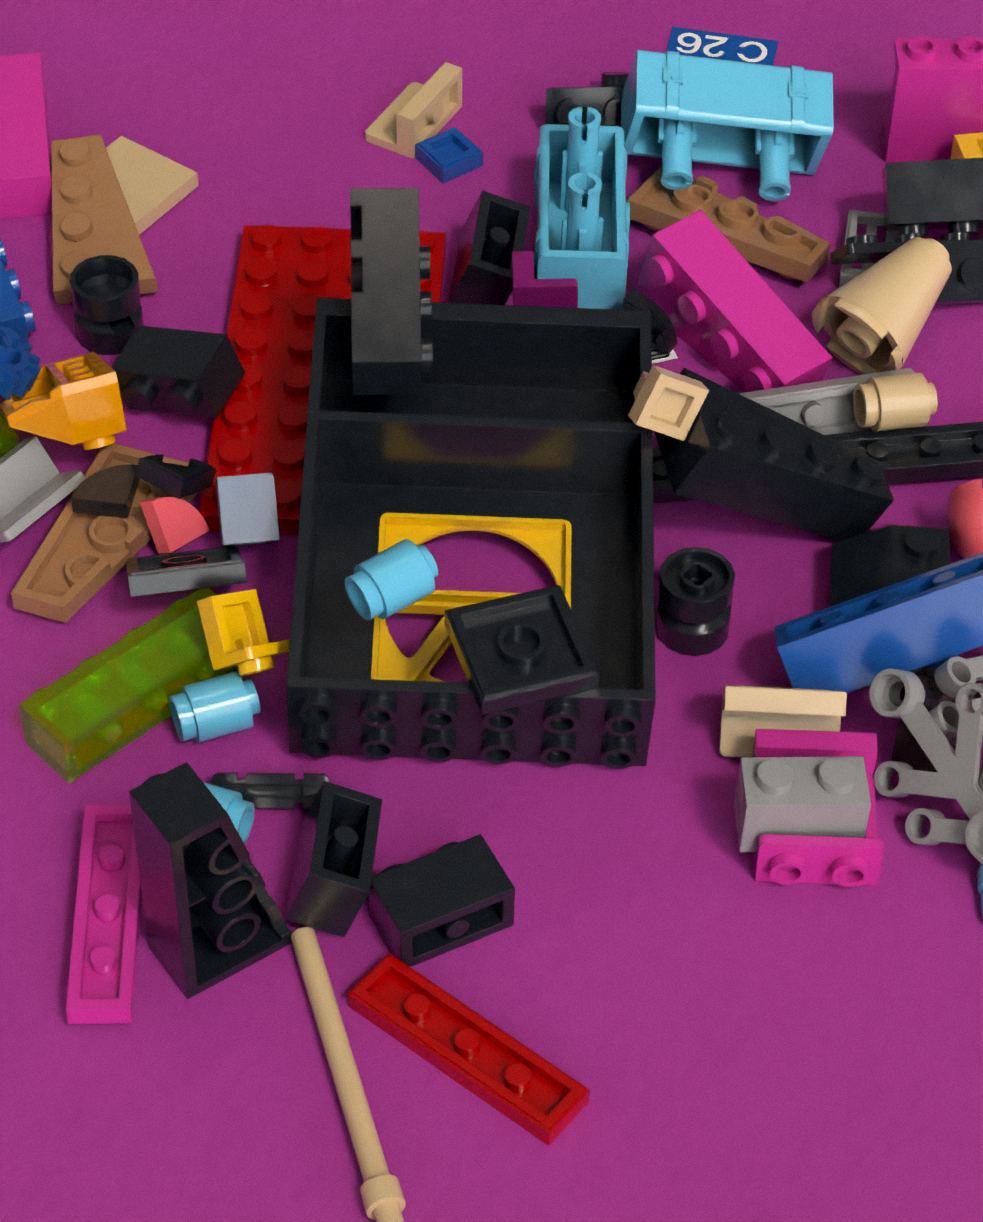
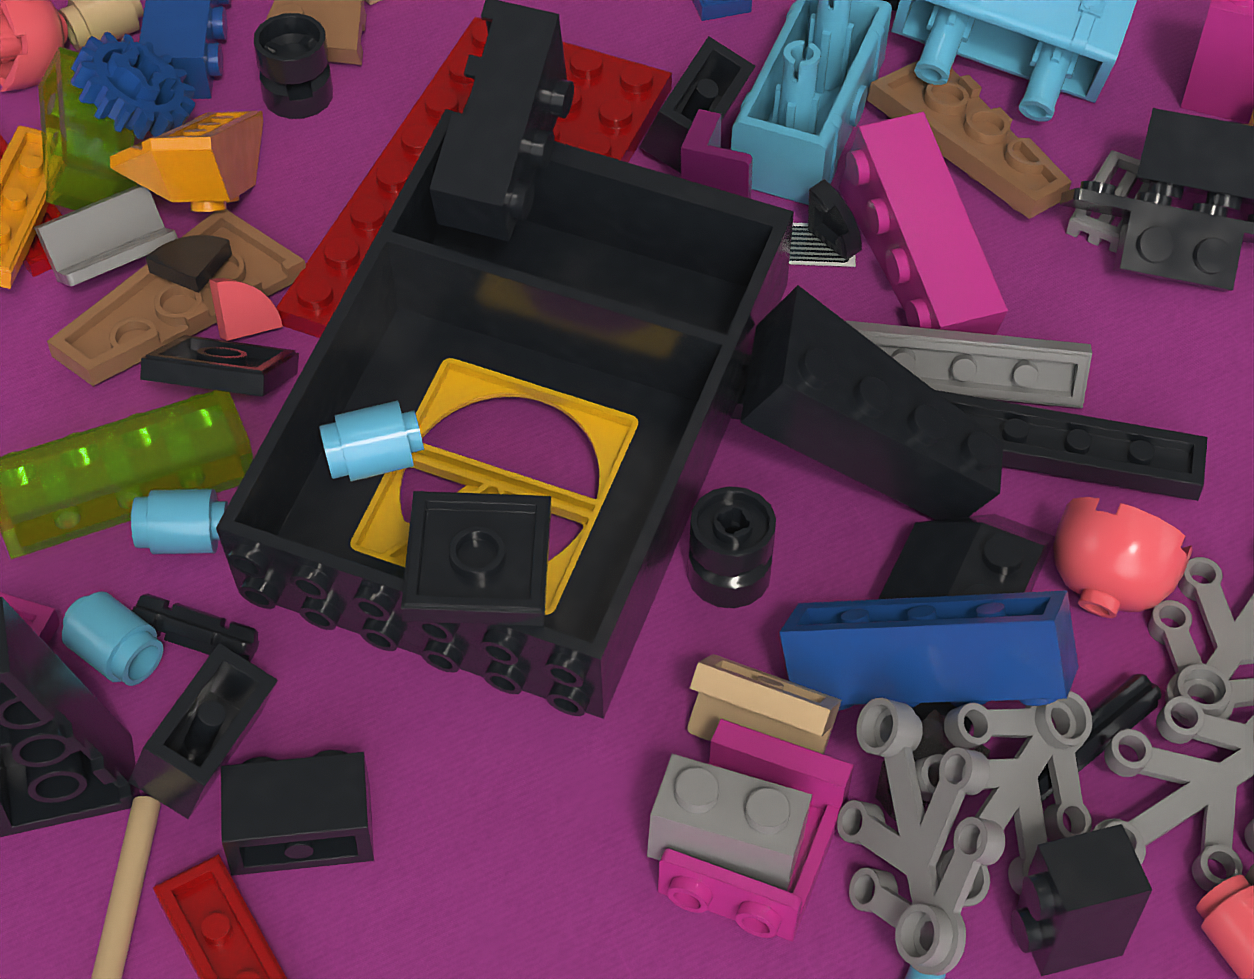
camera: 20 degrees right, 5 degrees up
(175, 478) = (259, 264): black tile -> none
(178, 371) = (322, 152): black brick -> none
(238, 633) = (218, 447): yellow bracket -> none
(247, 509) = (305, 312): panel -> none
(667, 402) = (757, 321): tan tile -> none
(884, 307) = (1092, 267): tan cone -> none
(894, 402) = (1054, 379): tan brick -> none

